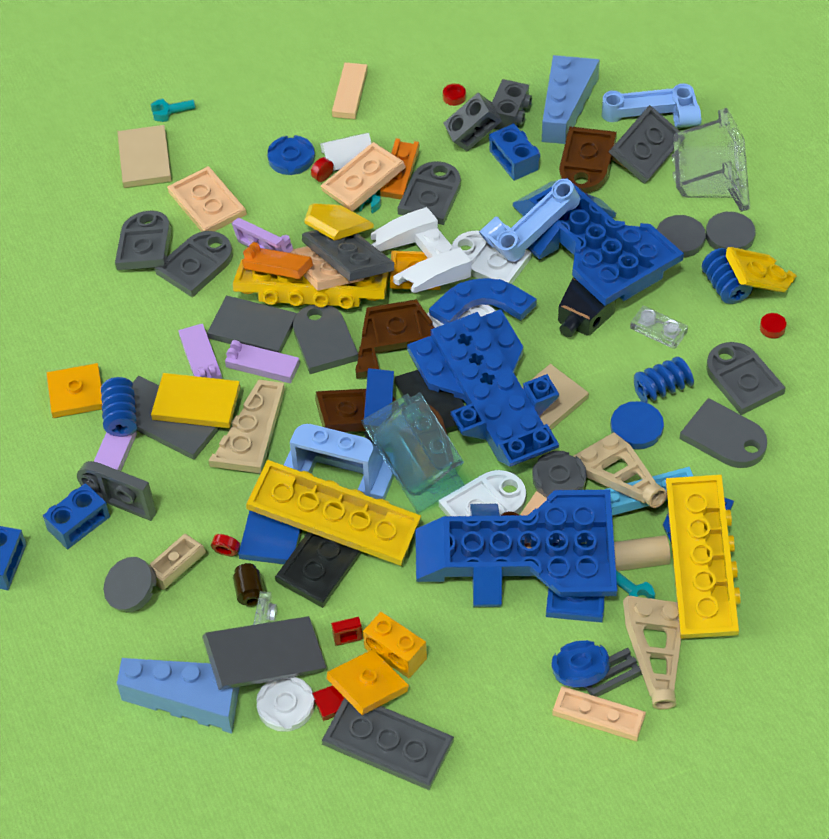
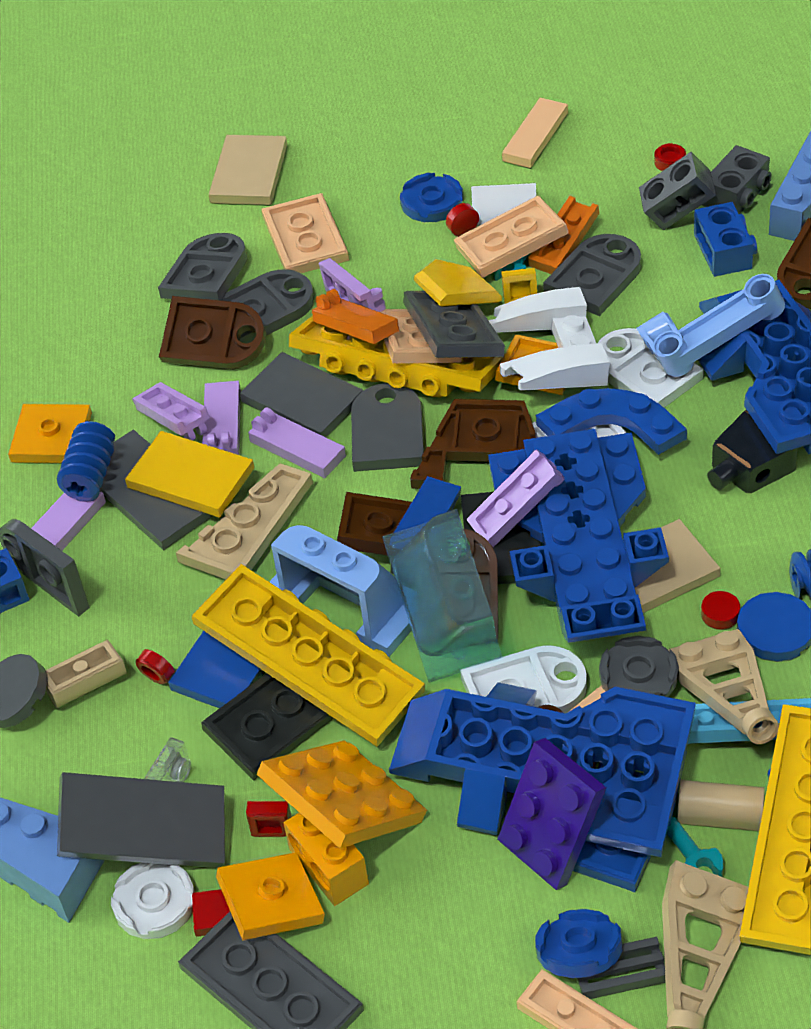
camera: 20 degrees right, 5 degrees down
(162, 110) = (292, 119): teal bar -> none
(163, 355) = (173, 410): none -> lavender hinge
(167, 291) = (209, 333): none -> reddish brown plate
(247, 584) = (163, 720): dark brown brick -> none
(382, 213) = (518, 284): none -> yellow tile
(393, 602) = (342, 793): none -> light orange plate
(440, 371) = (515, 497): none -> lavender hinge
(539, 584) = (551, 813): none -> dark purple plate
(597, 421) = (720, 610): none -> red tile

